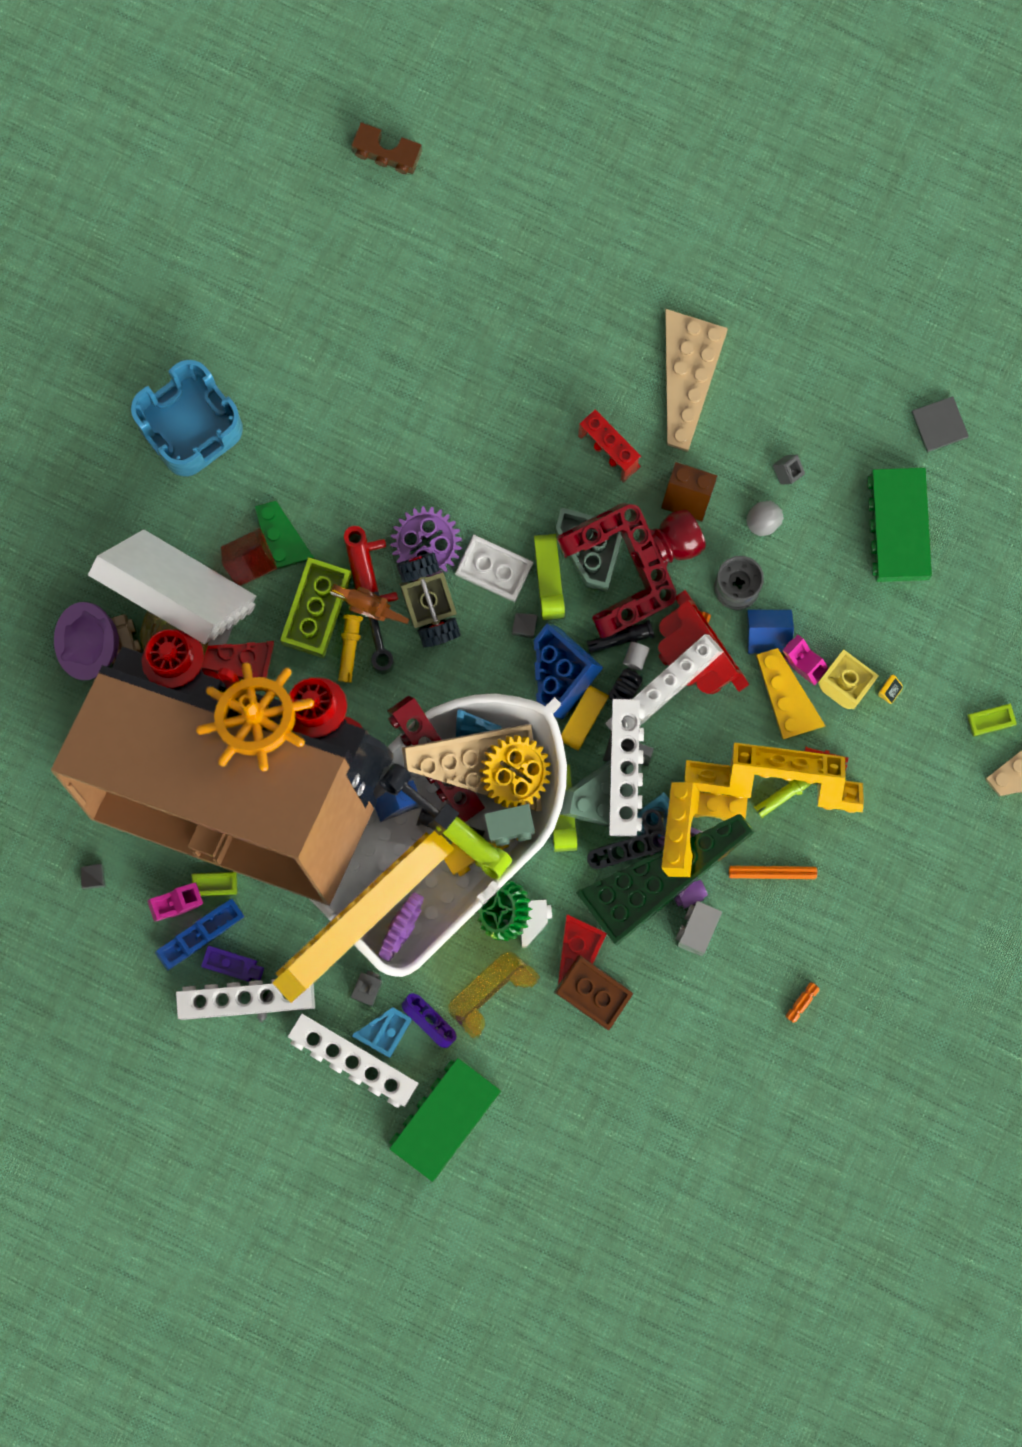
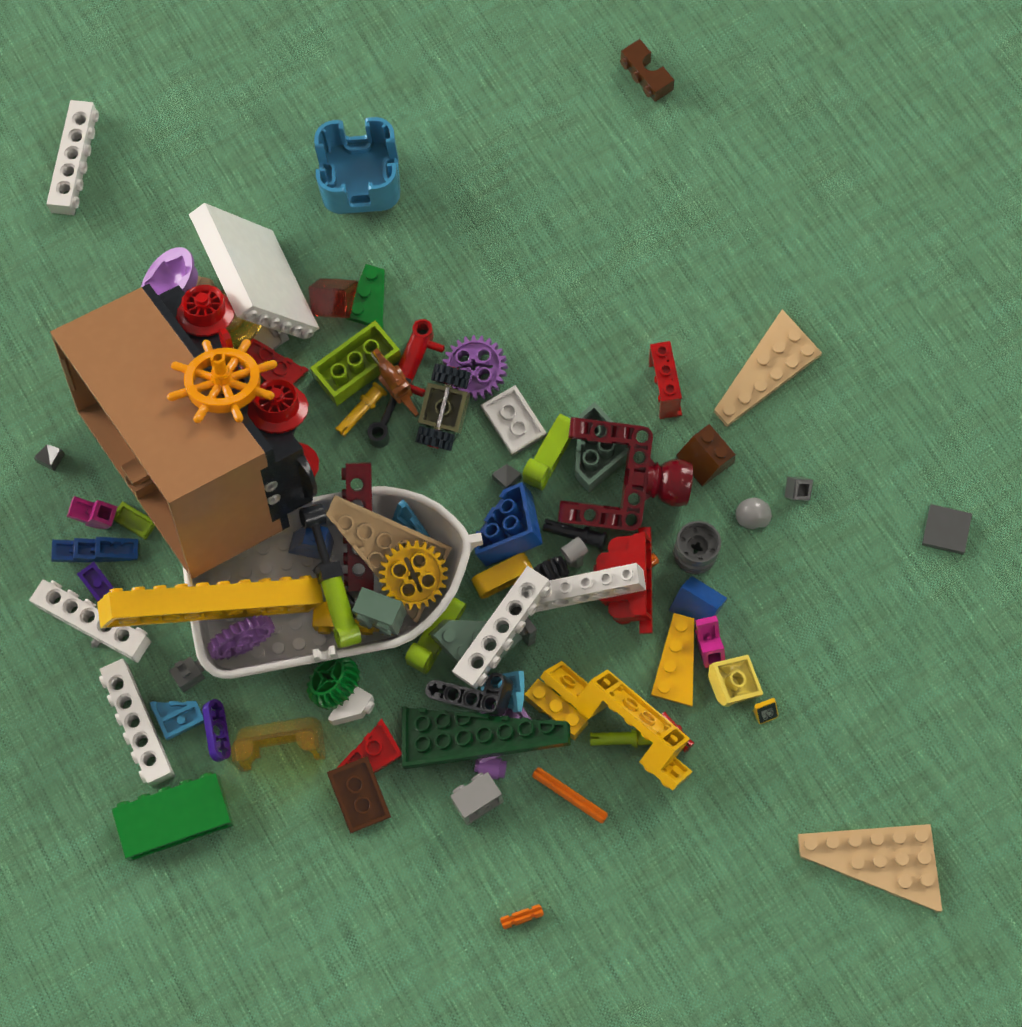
camera: 40 degrees right, 10 degrees down
(677, 847) = (496, 720): yellow arch -> none
(899, 524) = (860, 585): green brick -> none
(991, 720) = (834, 790): lime tile -> none

